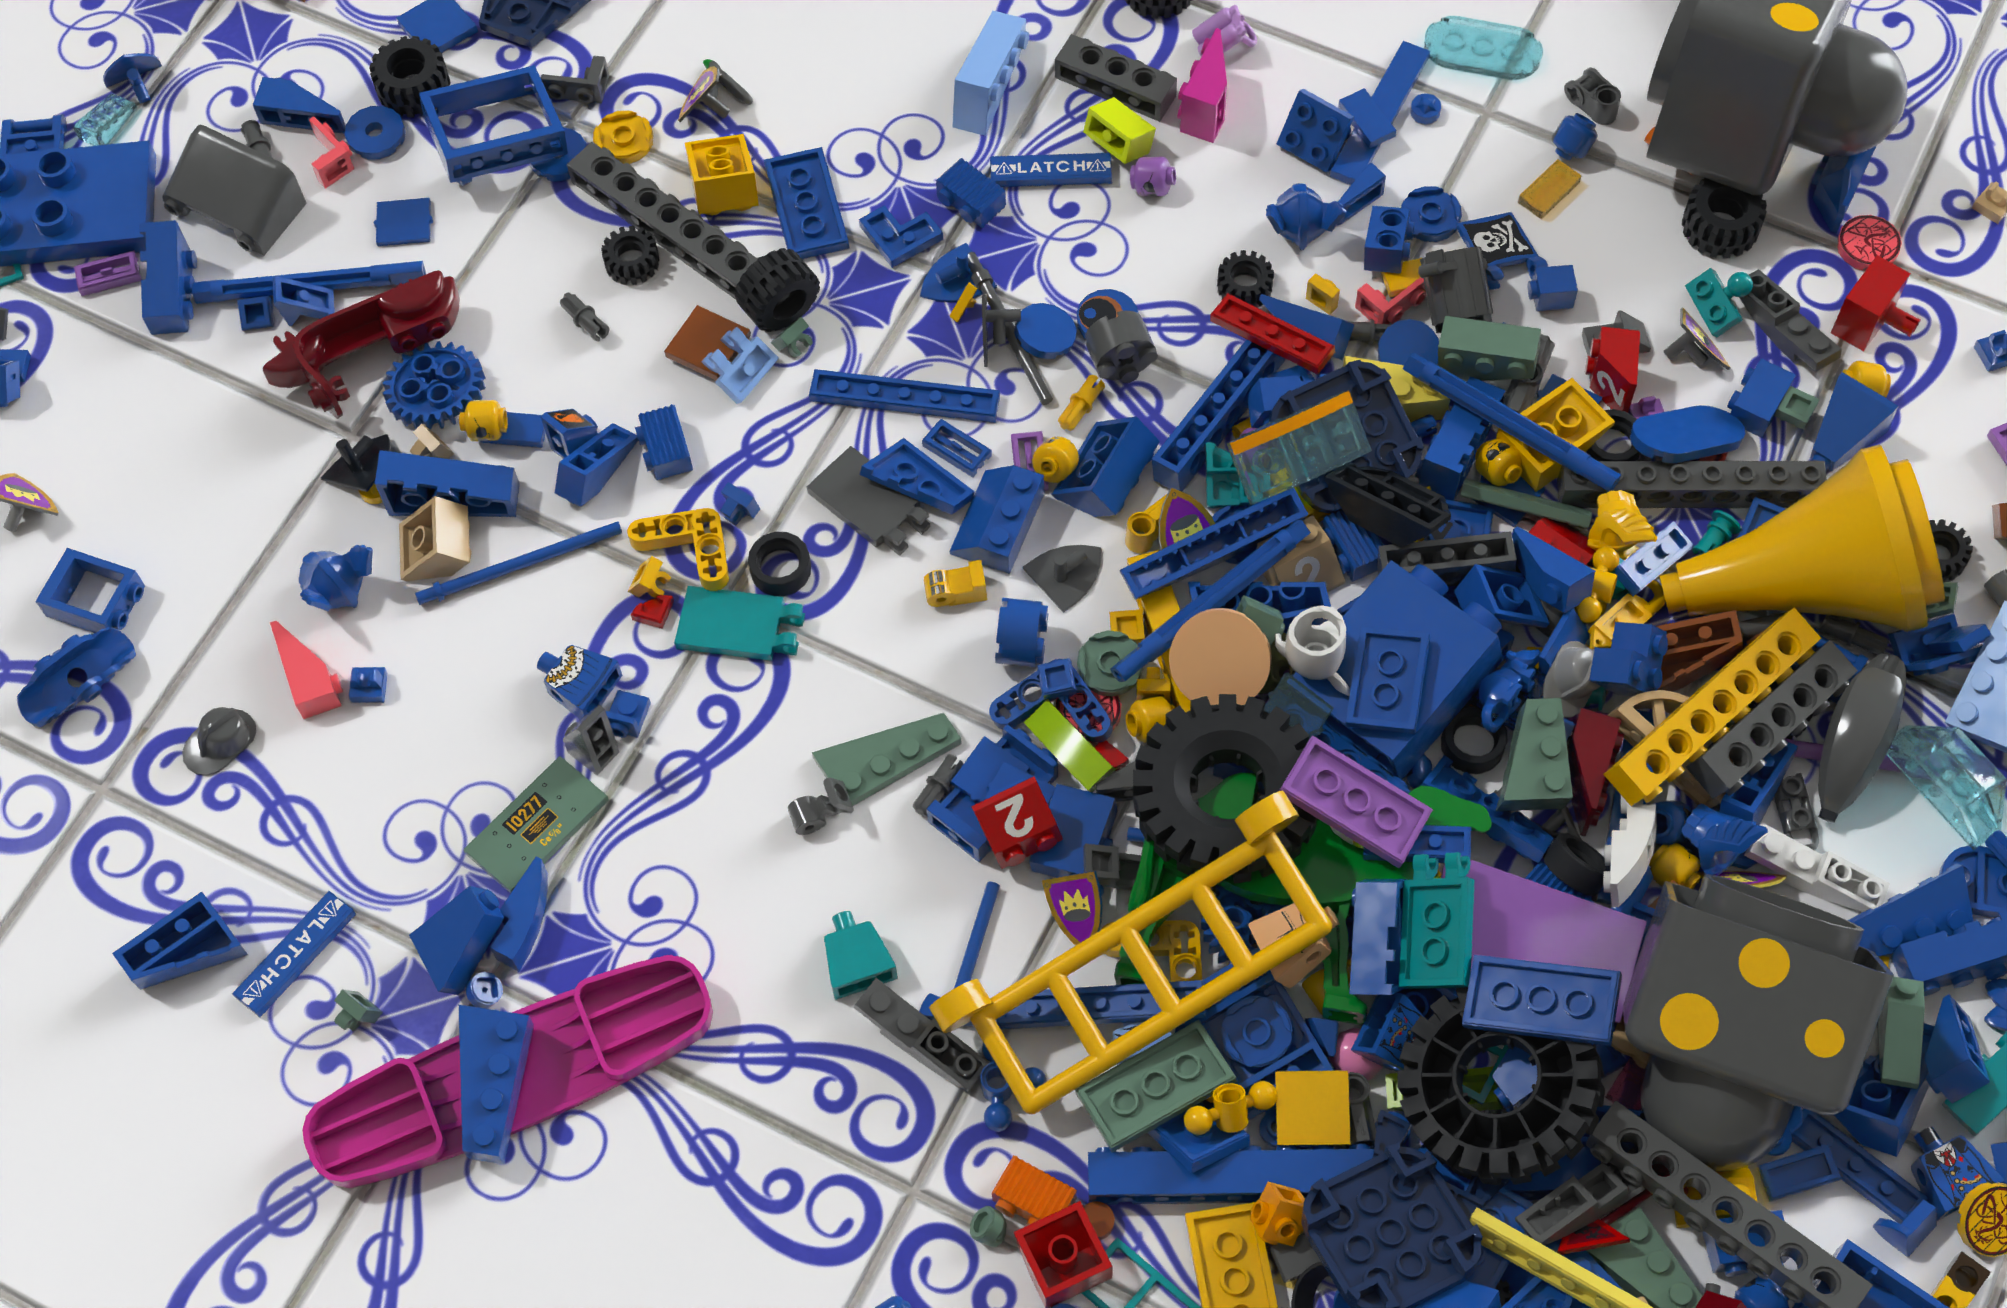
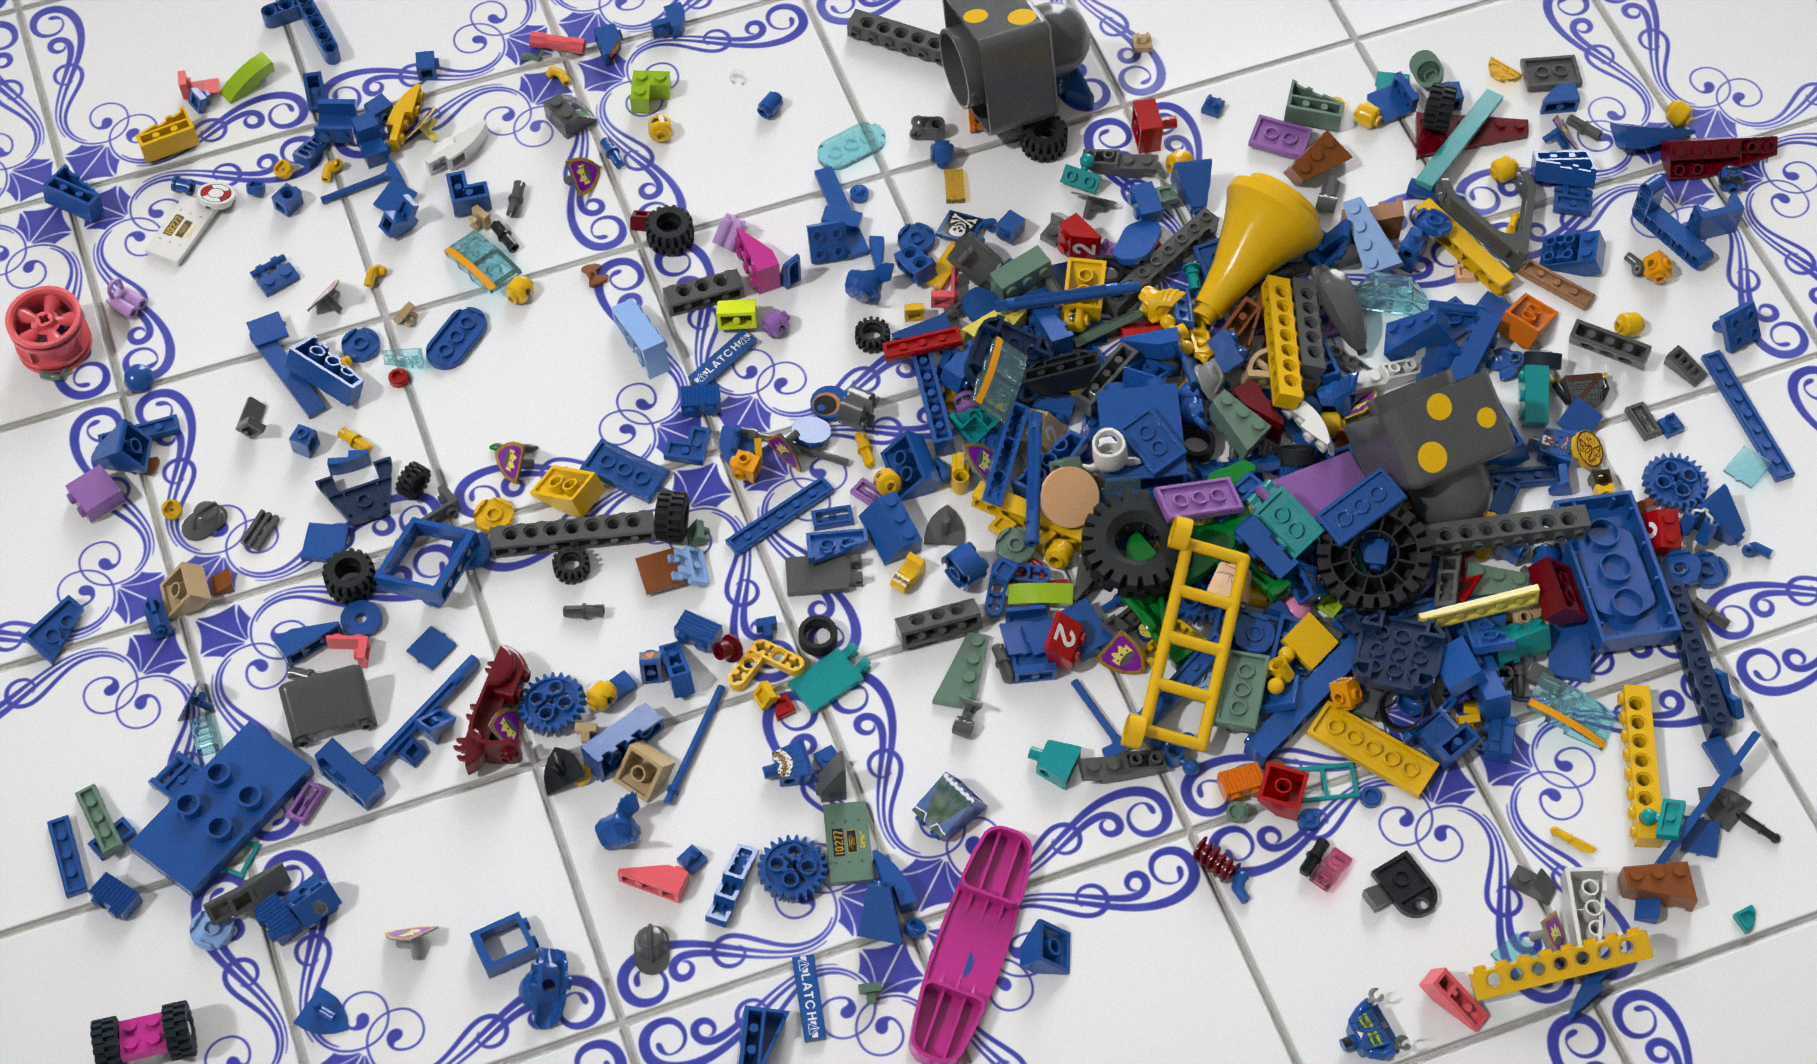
camera: 50 degrees left, 5 degrees down
(361, 367) = (506, 723): none -> shield
(368, 752) = (731, 885): none -> blue slope
(474, 797) = (776, 878): none -> blue gear
(491, 1075) = (971, 953): blue wedge -> none
(580, 17) = (413, 480): none -> black tyre
(584, 1160) = (1046, 949): none -> blue slope
(665, 489) = (728, 649): none -> dark red piece
(680, 890) = (948, 807): none -> slope
(886, 1255) = (1215, 861): none -> dark red piece
(918, 671) = (938, 623): none -> dark grey brick
(926, 306) = (745, 466): none -> light orange brick
(1141, 502) = (944, 469): none -> blue arm
(1233, 130) = (790, 272): none -> blue slope
(1867, 237) = (1112, 101): coral tile -> none
(1919, 852) = (1414, 332): none -> blue wedge
(1954, 1054) = (1515, 402): blue slope -> none

